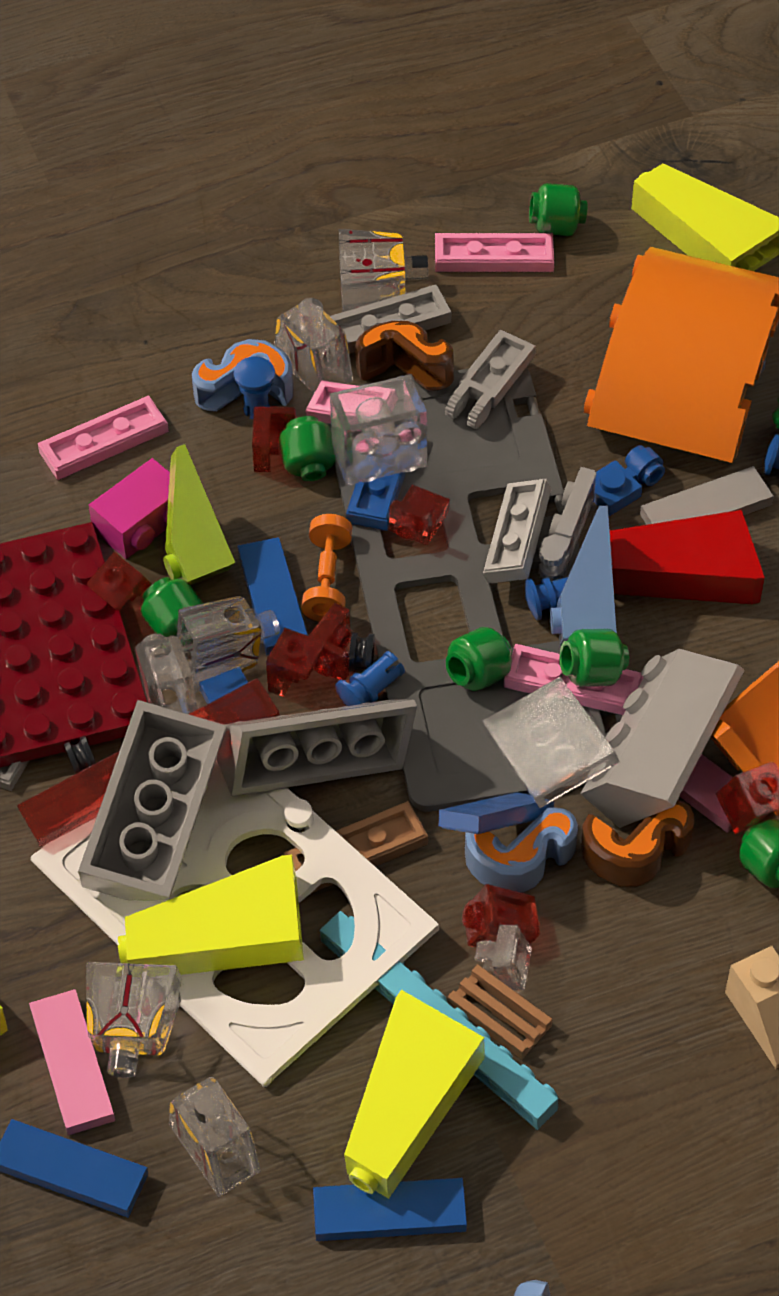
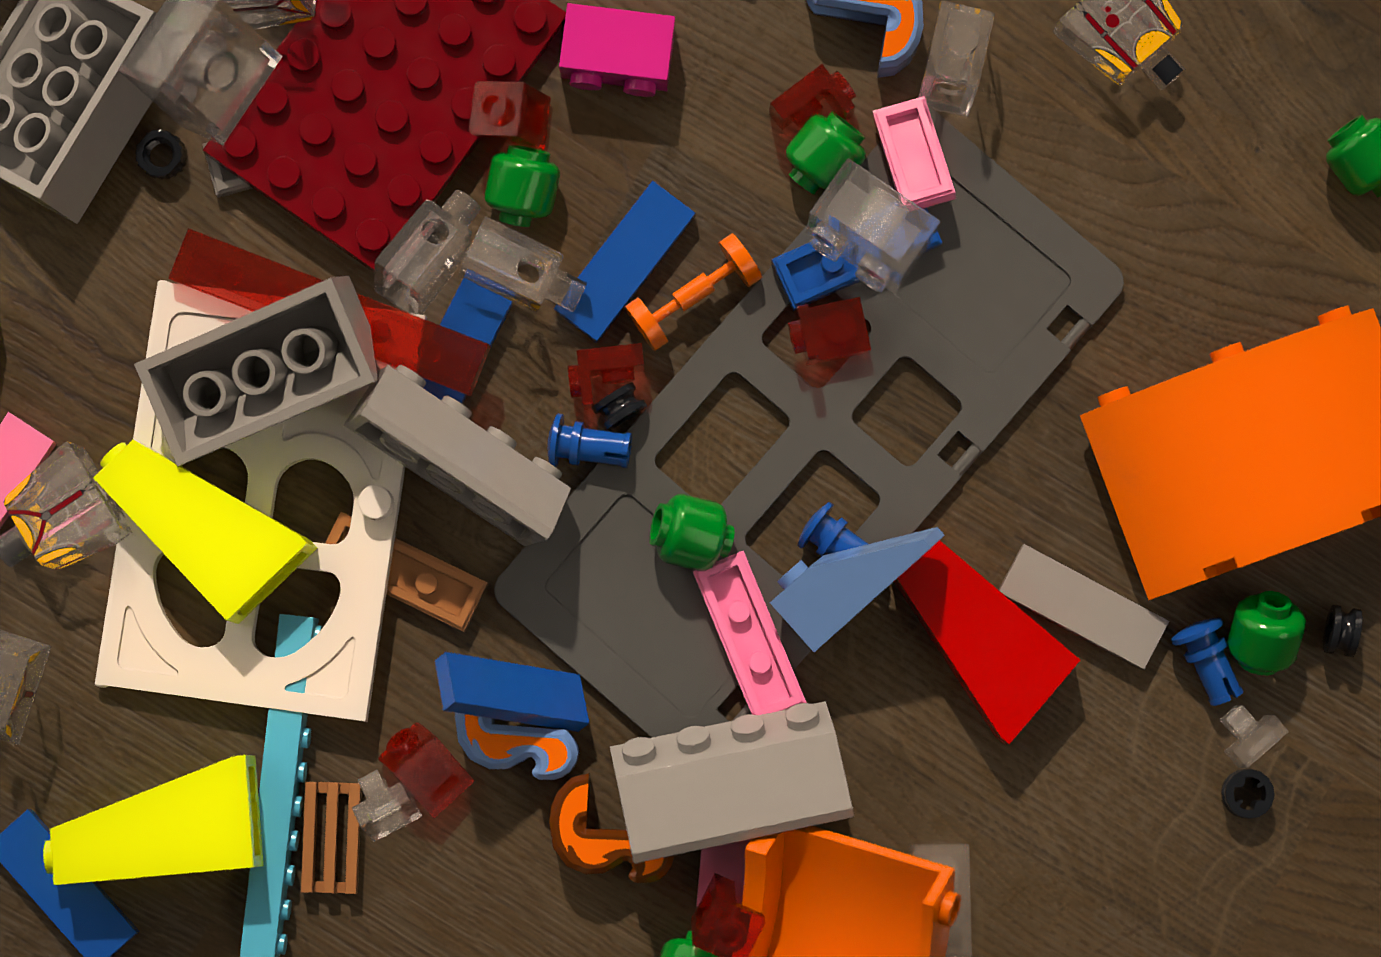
camera: 50 degrees right, 30 degrees up
(80, 754) = (290, 240): black bush -> none
(193, 535) = (612, 139): lime slope -> none
(255, 381) = (854, 36): blue pin -> none
(291, 660) = (547, 356): clear red bracket -> none
(407, 348) = (1040, 151): reddish brown animal -> none
(423, 307) = (1067, 95): light grey plate -> none
(491, 377) = (1071, 266): light grey hinge -> none
(494, 252) = (1261, 128): bright pink tile -> none
(517, 531) = (884, 448): light grey tile -> none
(550, 742) = (635, 681): clear tile -> none
(566, 528) = (925, 495): light grey hinge -> none
(593, 657) = (768, 650): green head -> none
(621, 486) = (1034, 495): blue plate -> none

